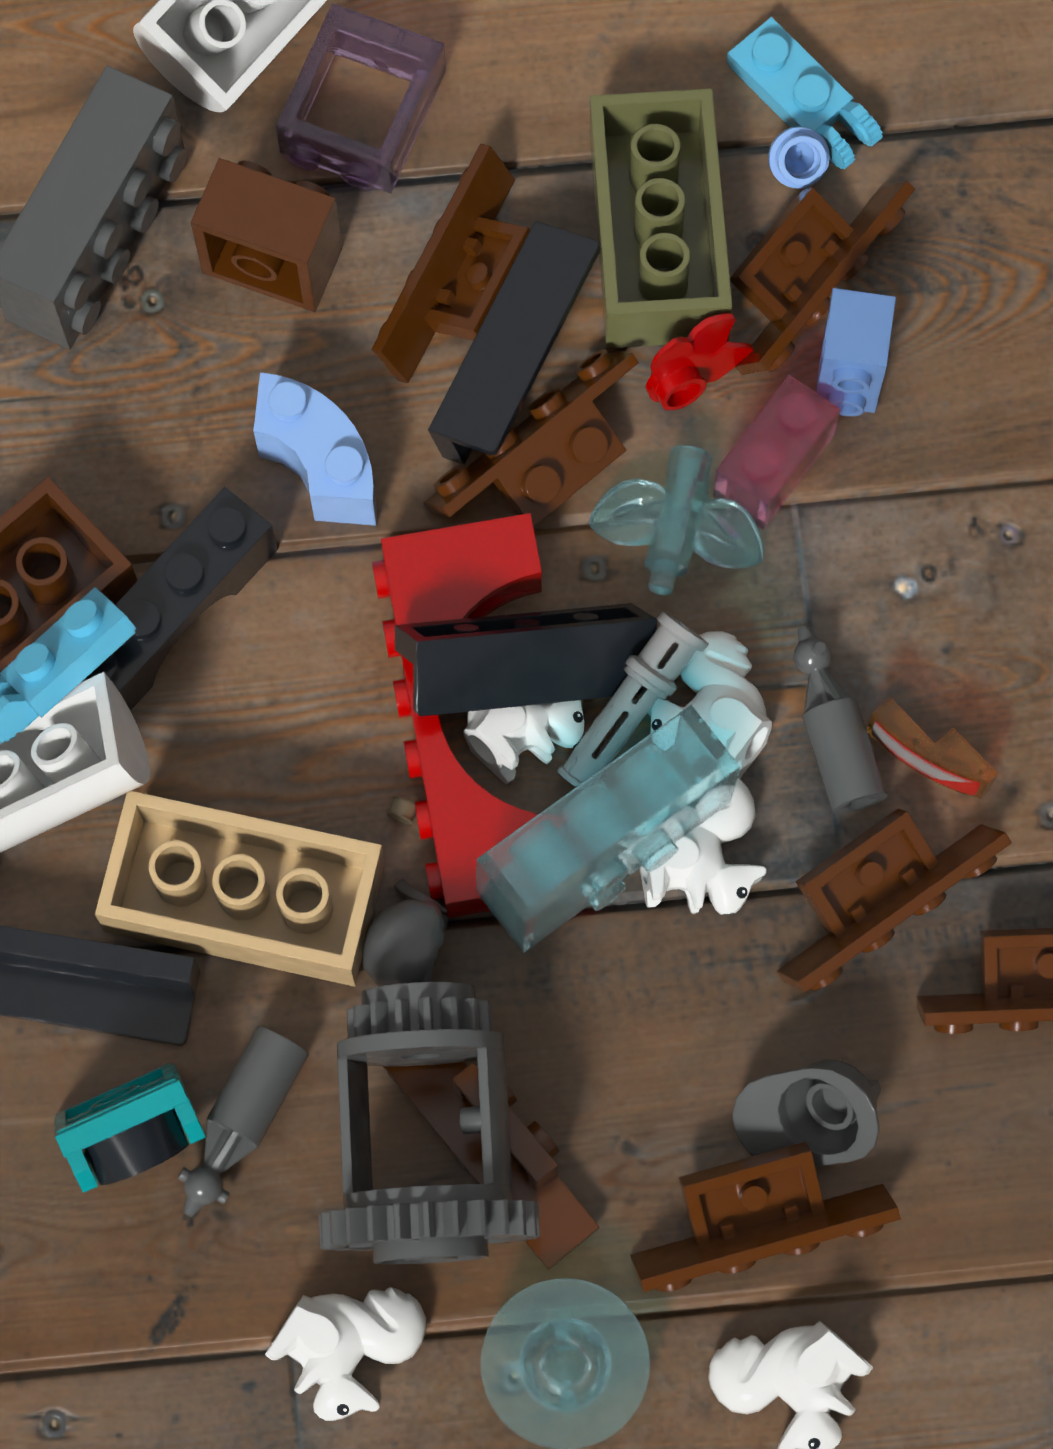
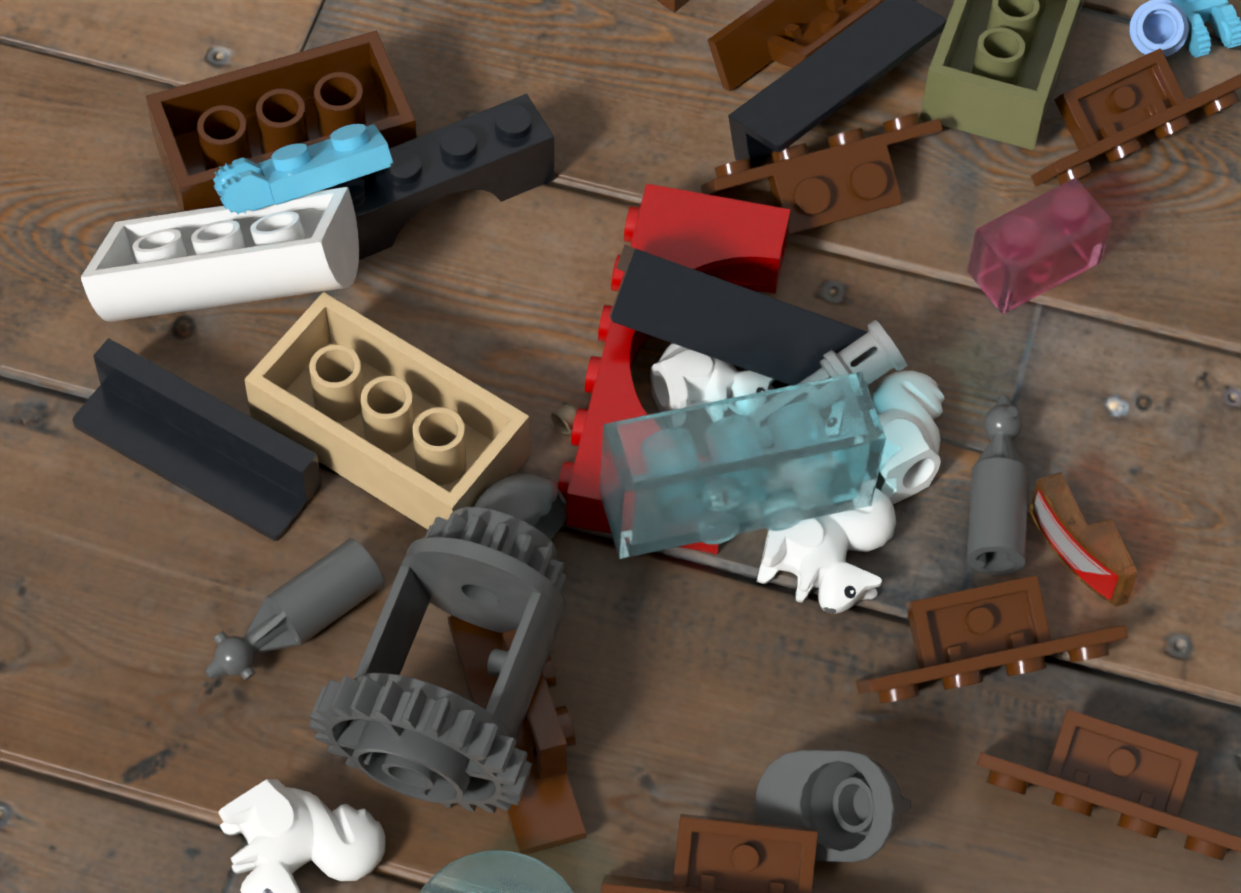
camera: 20 degrees right, 15 degrees down
(128, 1128) = (187, 571): teal piece -> none
(318, 445) = (626, 101): light blue brick -> none
(678, 521) = (925, 273): clear light blue plant -> none
(690, 362) = (994, 146): red plate -> none
(855, 350) = (1146, 181): medium blue brick -> none

